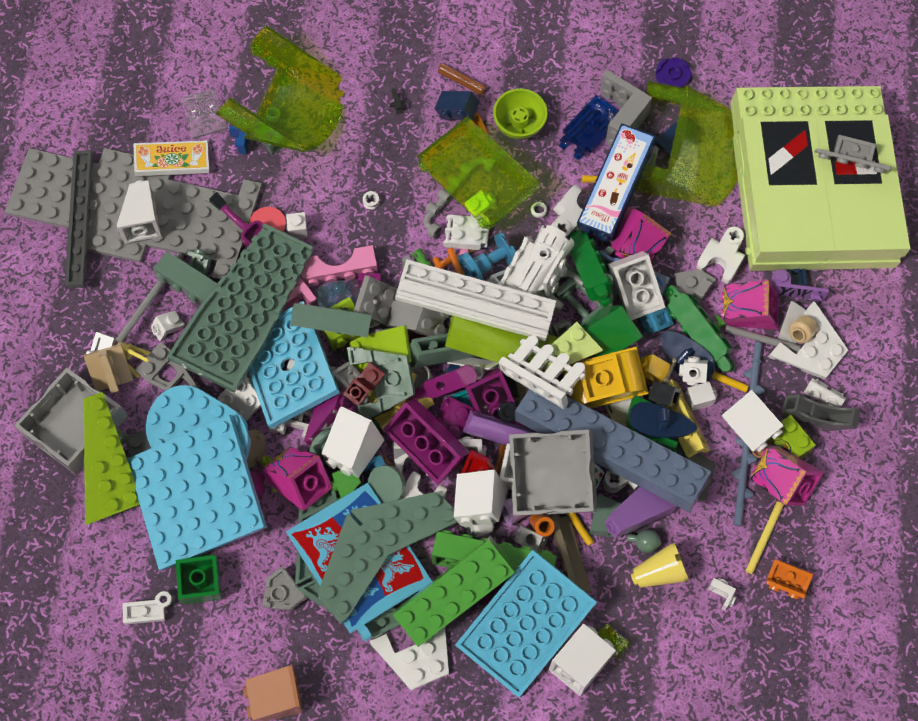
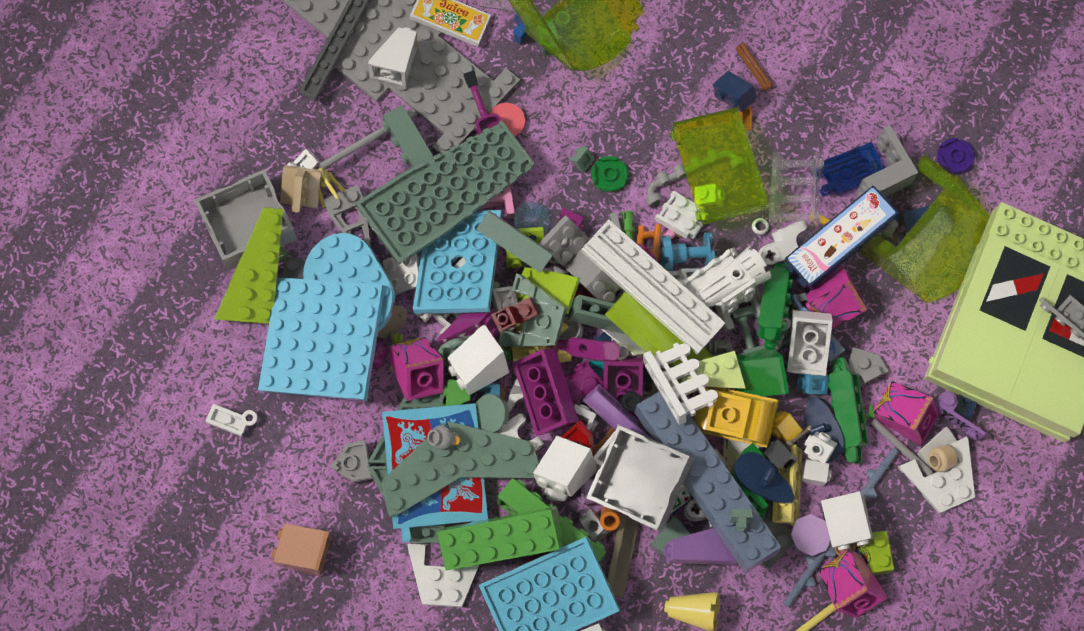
camera: 20 degrees right, 5 degrees up
(166, 324) = (371, 171): white bracket -> none
(198, 579) = (287, 416): green brick -> none
(200, 260) = (428, 127): sand green bracket -> none
(297, 225) = (531, 135): white brick -> none
(318, 272) = (572, 198): bright pink arch -> none
(353, 225) = (582, 159): none -> sand green tile
(354, 526) = (442, 437): none -> light grey animal
(372, 205) = (611, 137): white bush -> none
(387, 231) = (609, 174): none -> green tile
(397, 102) = (682, 61): pearl dark grey piece -> none
(520, 113) = (791, 119): lime piece -> none
(535, 164) = (779, 181): none -> clear fence
(580, 528) = (644, 540): yellow bar -> none
(646, 540) = (696, 578): sand green piece -> none
(663, 462) = (740, 517): none -> sand green tile
(724, 253) = (909, 351): white piece -> none
(726, 451) = (810, 535): none -> lavender piece
(729, 381) = (850, 472): yellow bar -> none
(819, 391) = (926, 521): white hinge -> none
(824, 416) = (918, 548): dark grey arch -> none

